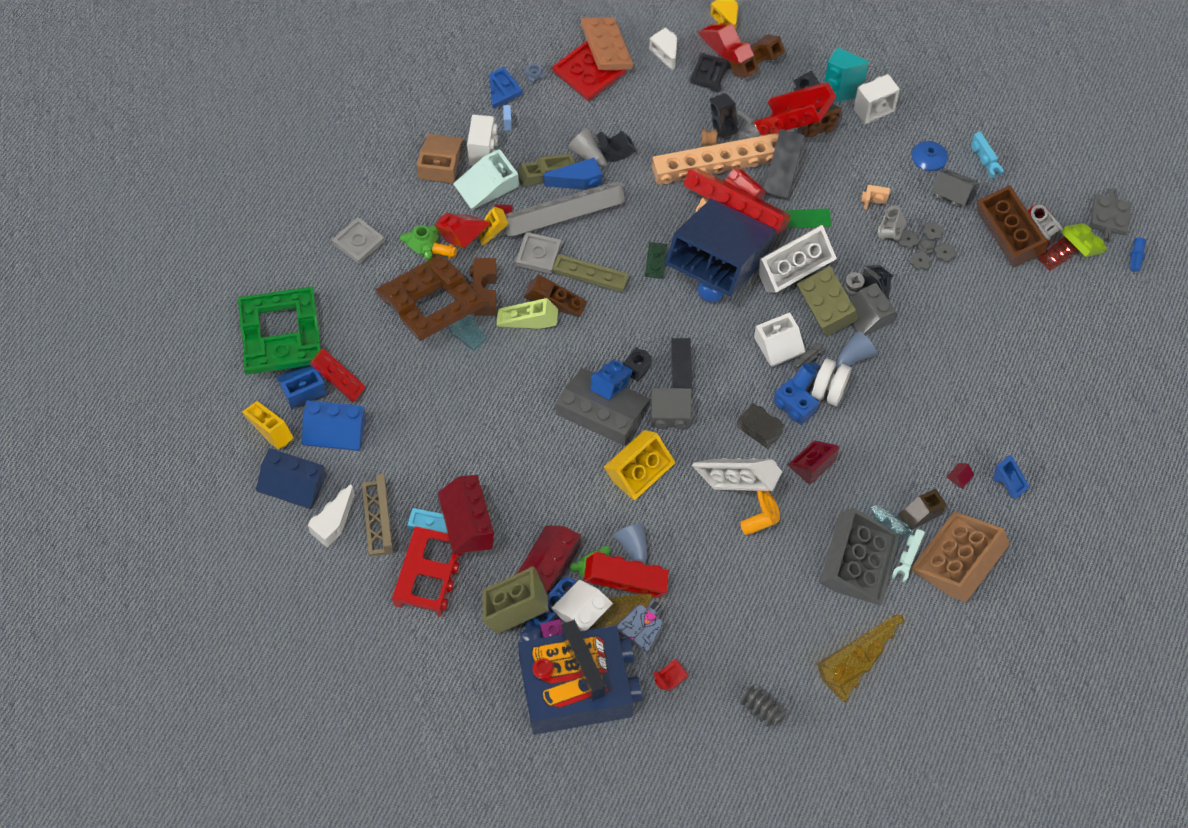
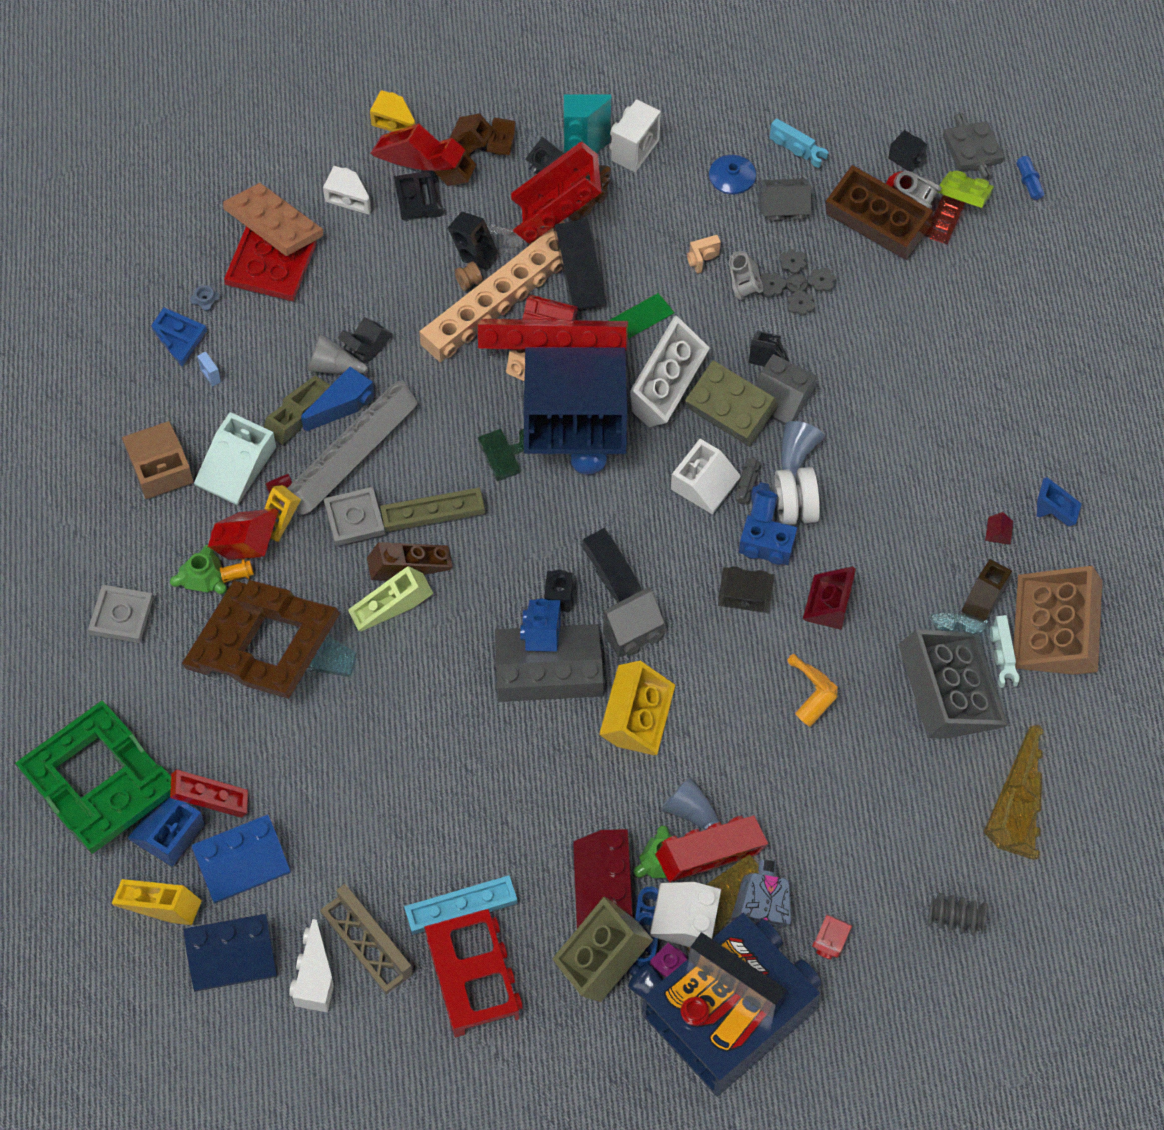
camera: 30 degrees left, 0 degrees up
(466, 515) = (478, 879): dark red slope -> none
(481, 138) = (198, 411): white brick -> none
(484, 273) = (304, 574): reddish brown arch -> none
(739, 473) = (767, 658): white slope -> none
(788, 60) = (502, 136): none -> reddish brown bracket
(854, 288) = (740, 363): light grey wheel -> none
(1060, 196) = (908, 151): none -> black brick

